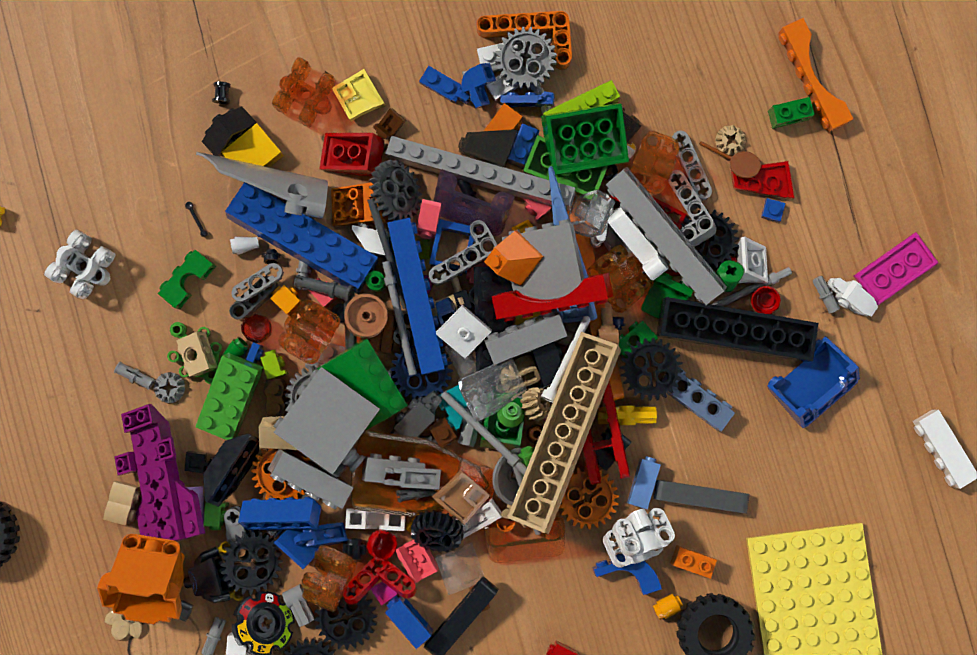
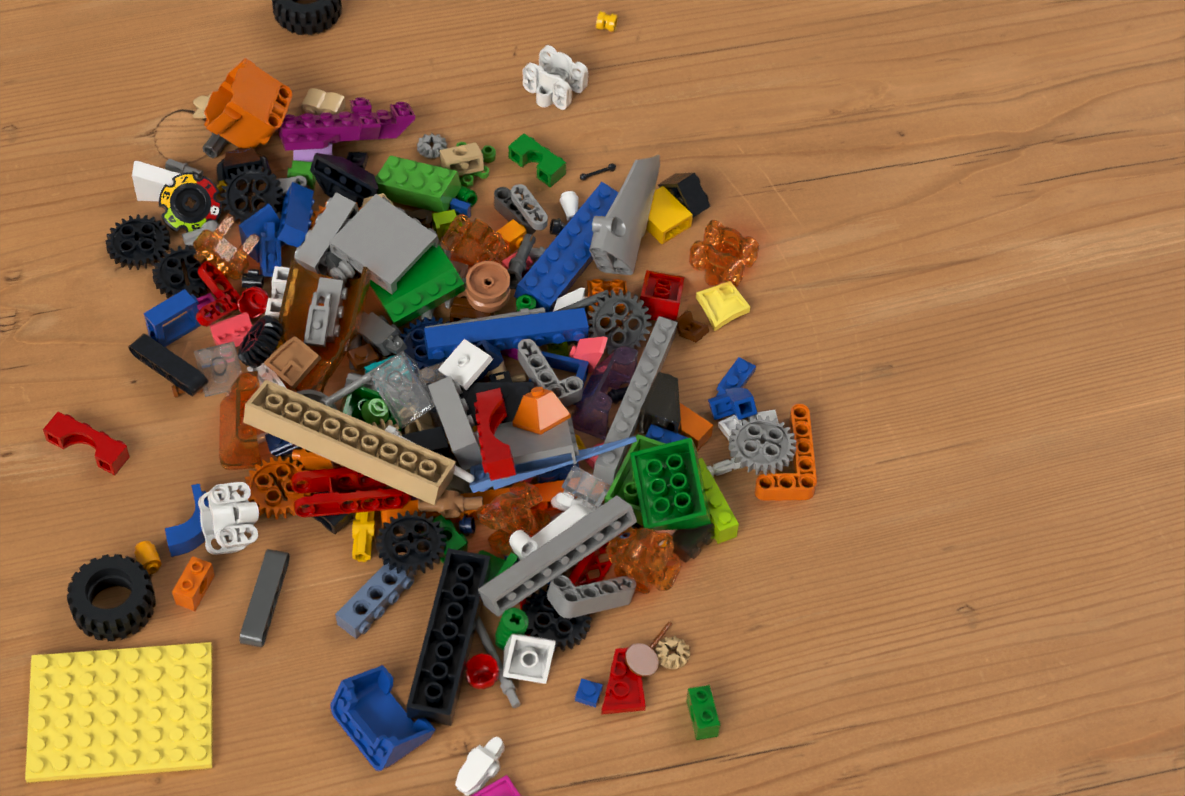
camera: 90 degrees right, 30 degrees down
(134, 375) = (439, 126): light grey pin -> none
(221, 92) = (725, 193): black bush -> none
(256, 328) = (484, 209): clear red hair -> none
(414, 493) = (301, 322): dark grey axle -> none
(528, 100) = (717, 454): blue hinge -> none
(644, 482) = (287, 539): medium blue brick -> none
(694, 164) = (644, 613): light grey beam -> none
(825, 294) = (482, 740): light grey axle -> none
(831, 110) = (790, 726): orange arch -> none

